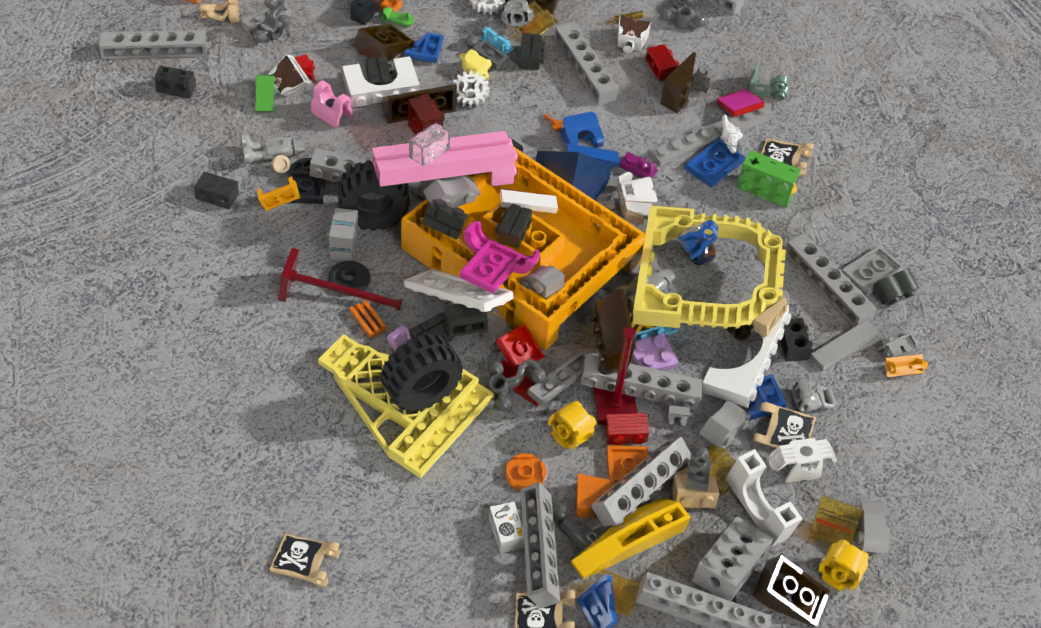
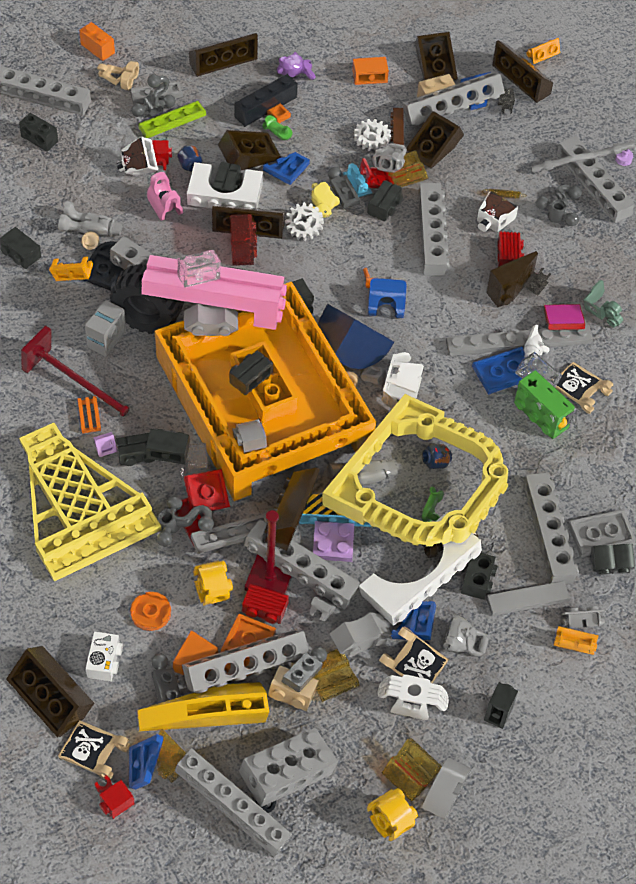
camera: 25 degrees right, 5 degrees up
(265, 93) = (111, 167): bright green tile -> none
(294, 37) = (172, 119): none -> lime tile
(332, 64) = (188, 156): none -> dark blue head
(358, 270) = (102, 361): black wheel -> none
(421, 372) = (88, 484): black tyre -> none
(445, 218) = (189, 344): pearl dark grey brick -> none
(457, 290) = (175, 416): white plate -> none
(475, 576) = (49, 690): none -> dark brown slope
(492, 260) = (211, 400): dark pink piece -> none
(511, 33) = (377, 175): none -> red piece
(532, 201) = (280, 352): white tile -> none
(539, 546) = (118, 685): light grey brick -> none
(605, 156) = (385, 324): blue tile -> none
(638, 166) = (426, 350): magenta plate -> none
(695, 239) = (422, 442): blue piece -> none
(719, 287) = (428, 512): none -> bright green piece
(741, 147) = (535, 362): none -> clear brick
(745, 482) = (349, 742): white arch -> none
(768, 319) = (452, 546): tan slope -> none
(791, 591) = (331, 819): dark brown slope -> none
(880, 439) = (501, 705): none -> pearl dark grey brick

